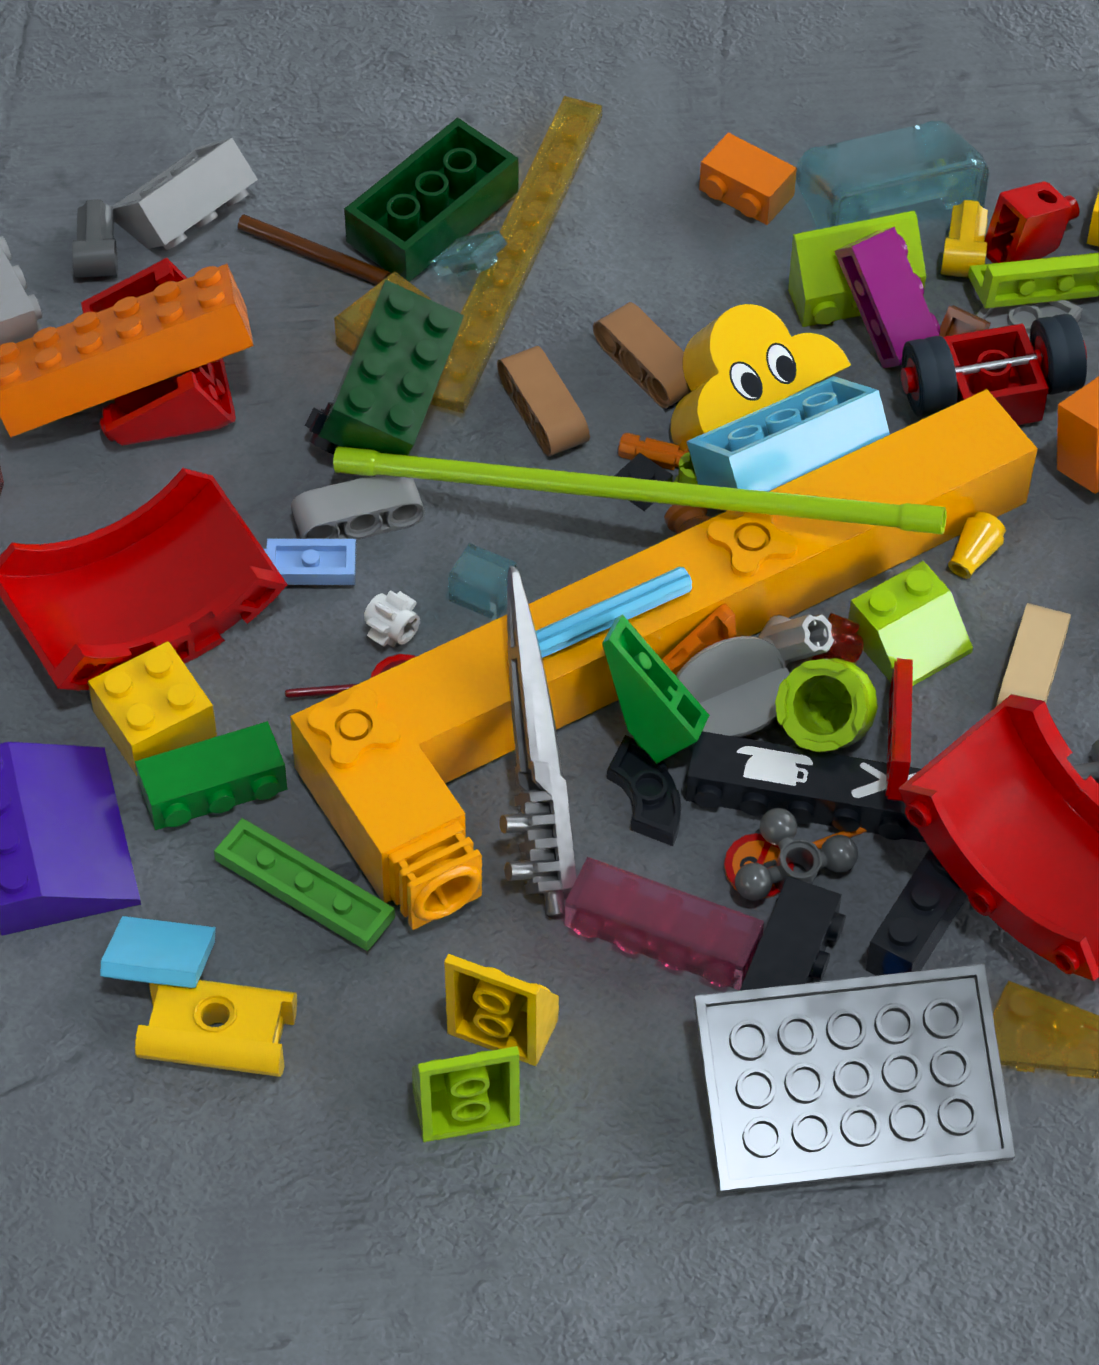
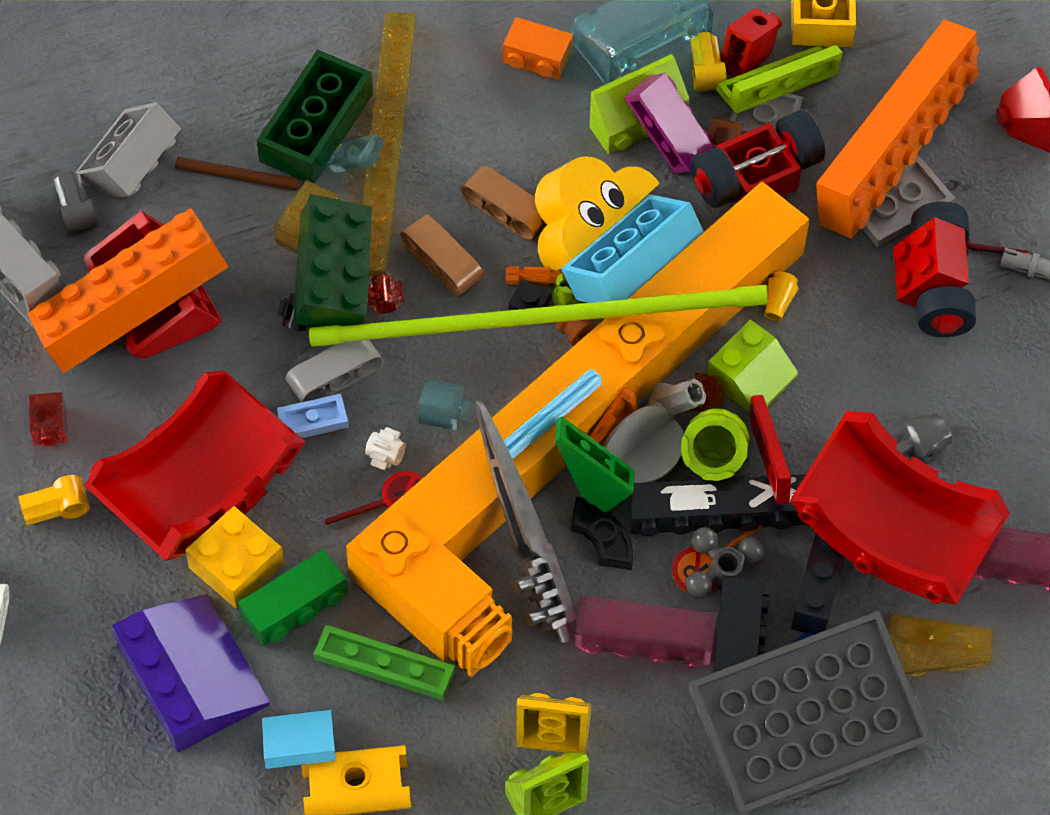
camera: 15 degrees left, 5 degrees up
(452, 430) = (385, 293): none -> clear red gear
(1035, 653) = (843, 374): tan beam -> none

